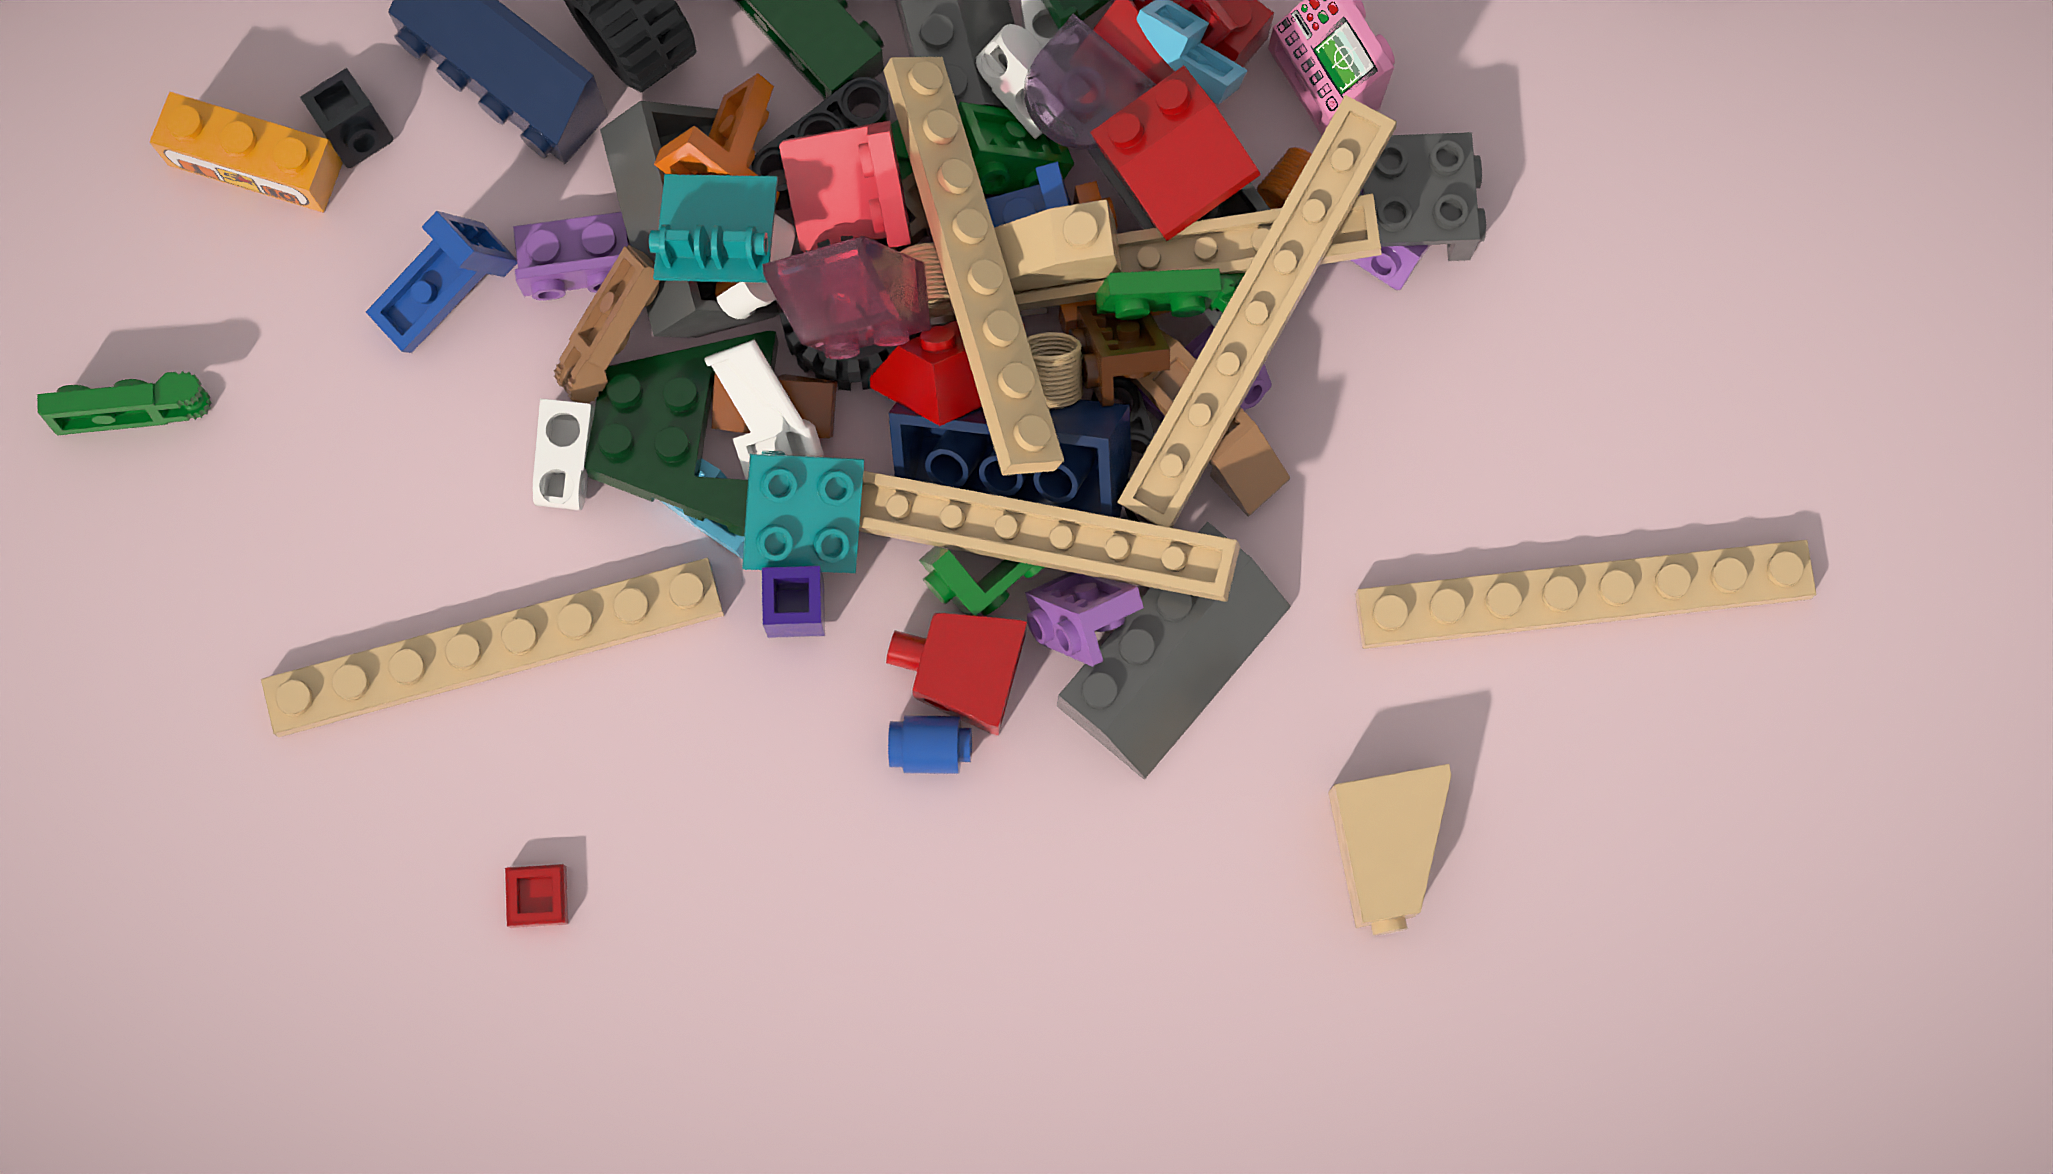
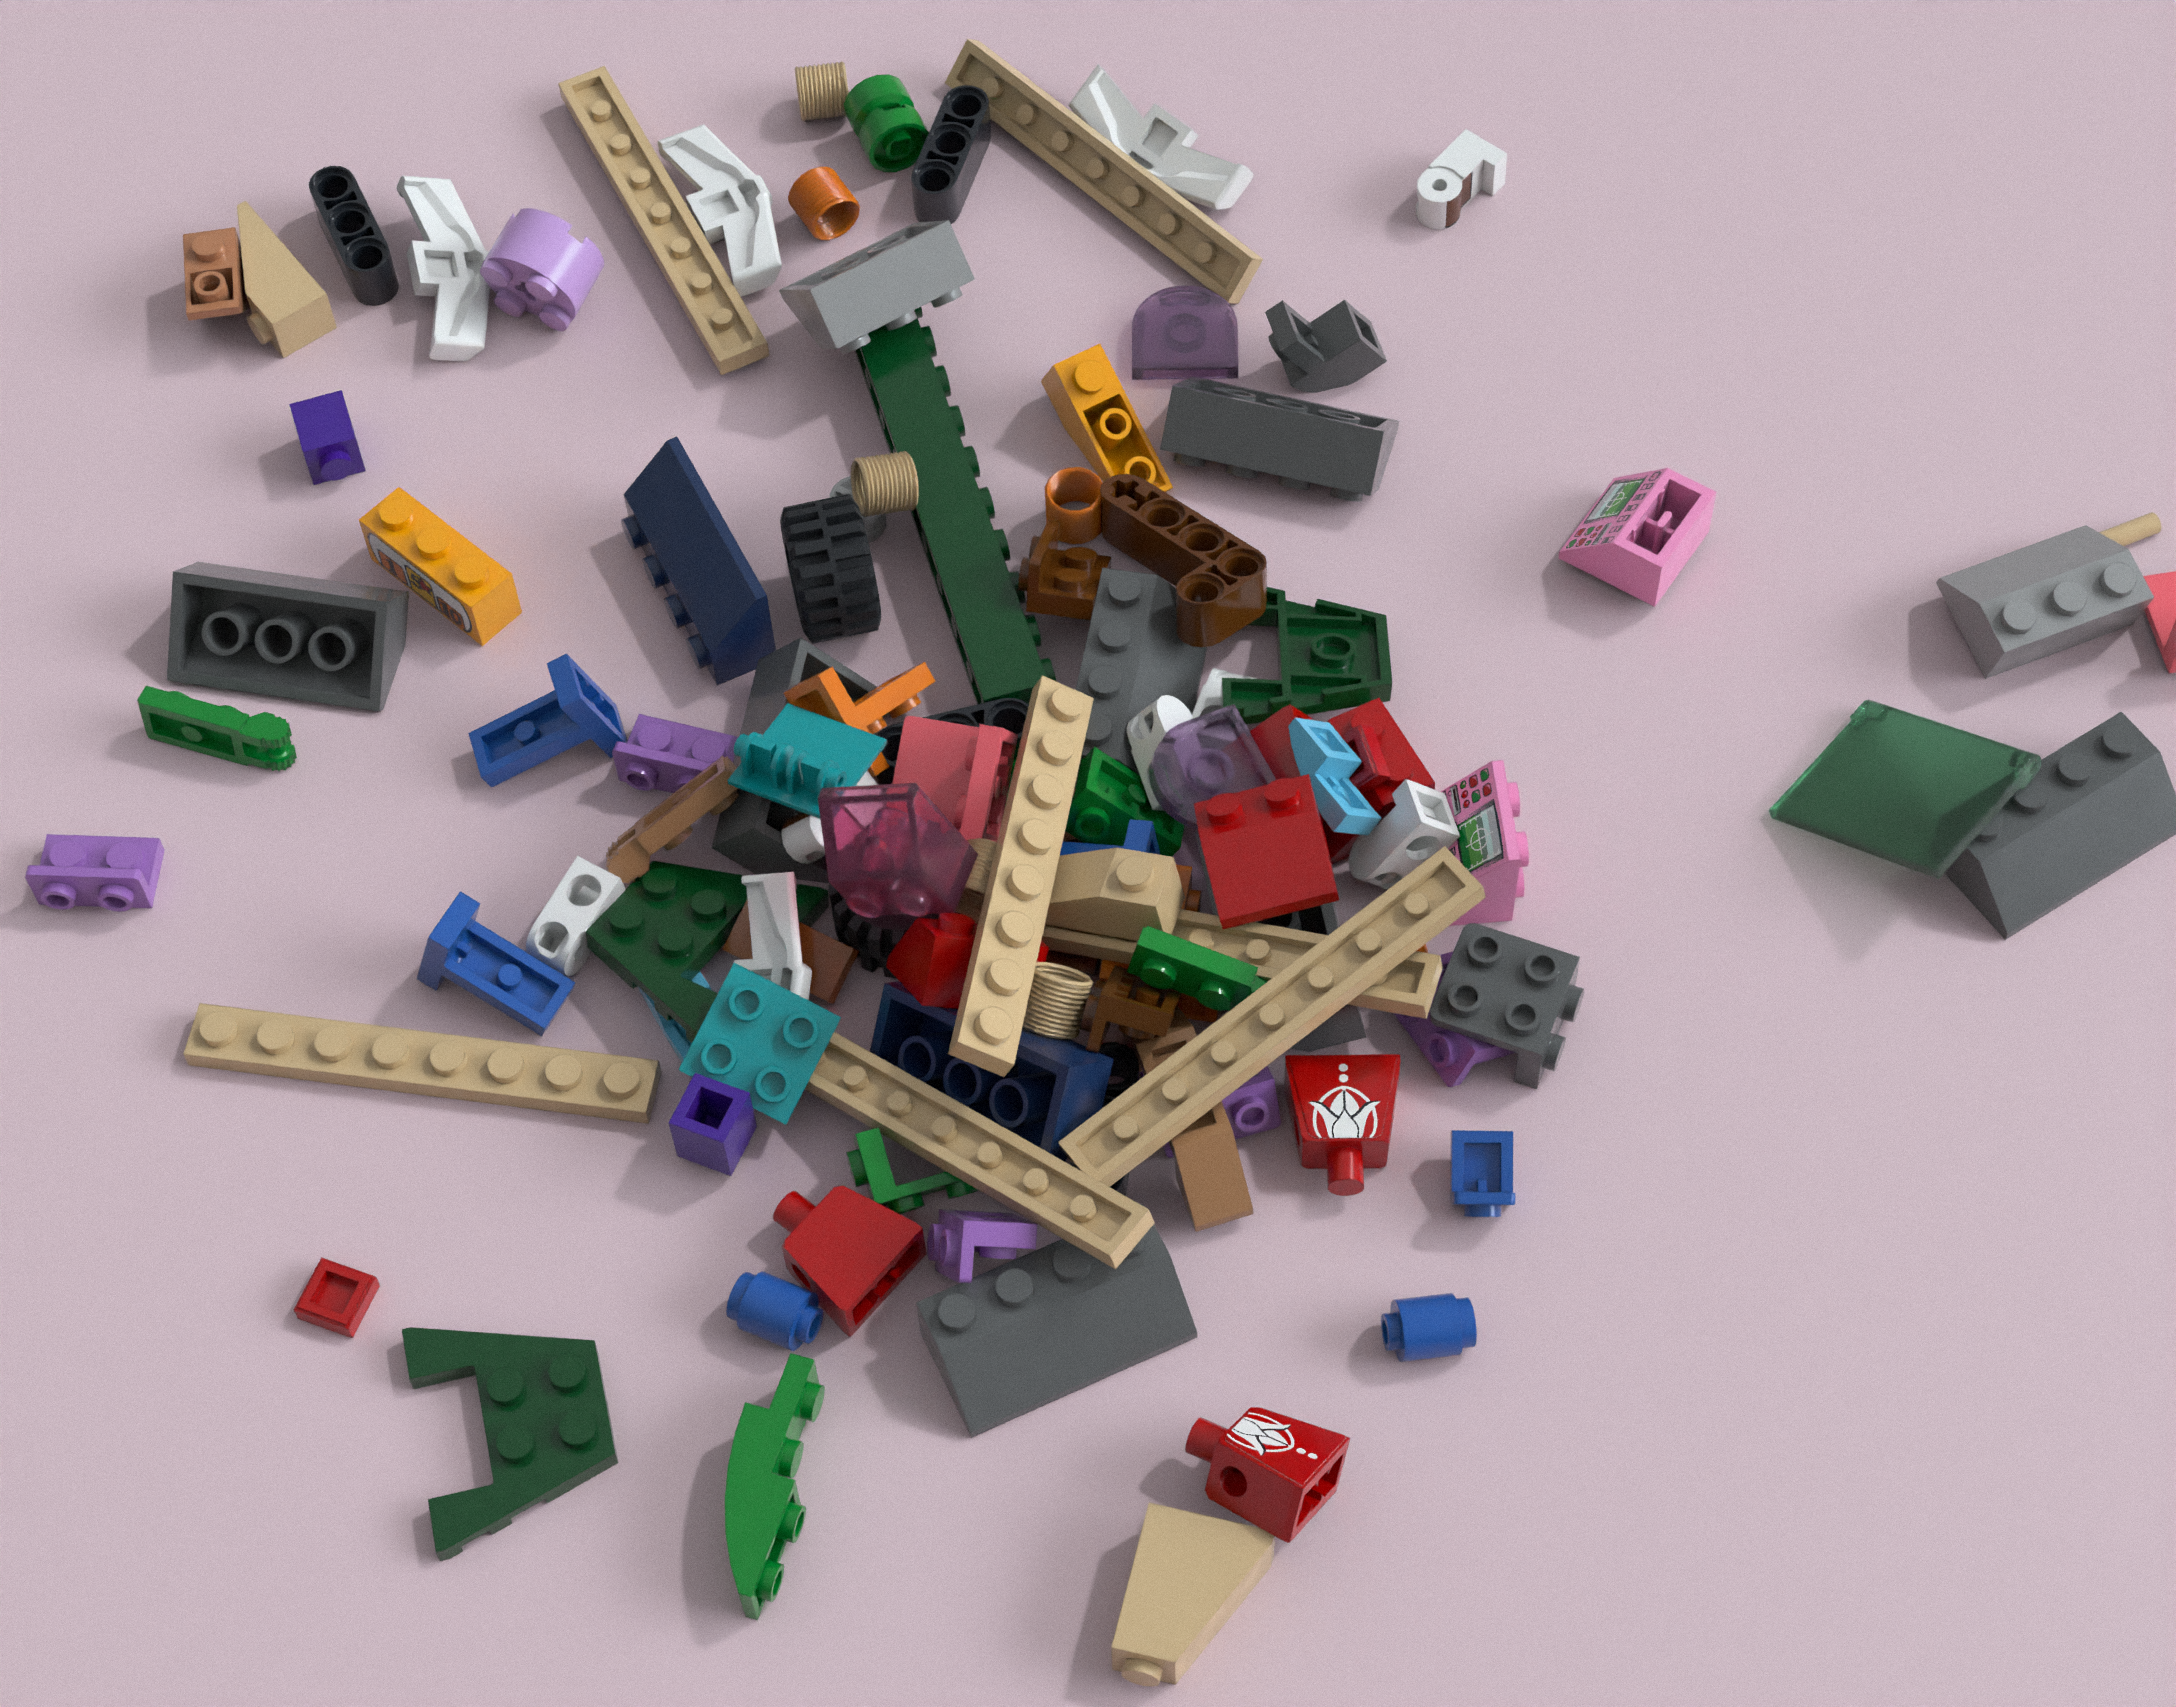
camera: 30 degrees right, 20 degrees down
(61, 59) = (327, 437): none -> dark purple brick
(89, 590) = (97, 872): none -> medium lavender bracket
(135, 281) = (285, 635): none -> dark grey slope
(347, 118) = (543, 575): black bracket -> none
(517, 537) = (492, 968): none -> blue bracket
(772, 924) = (540, 1418): none -> dark green wing
(1004, 925) = (759, 1495): none -> green slope
(1273, 77) = (1405, 837): none -> white leg
(1330, 359) = (1342, 1113): none -> torso
(1417, 709) = (1270, 1468): none -> red torso
(1466, 363) = (1481, 1171): none -> blue bracket
(1483, 521) = (1429, 1327): none -> blue brick
(1585, 594) = (1507, 1443): tan plate -> none

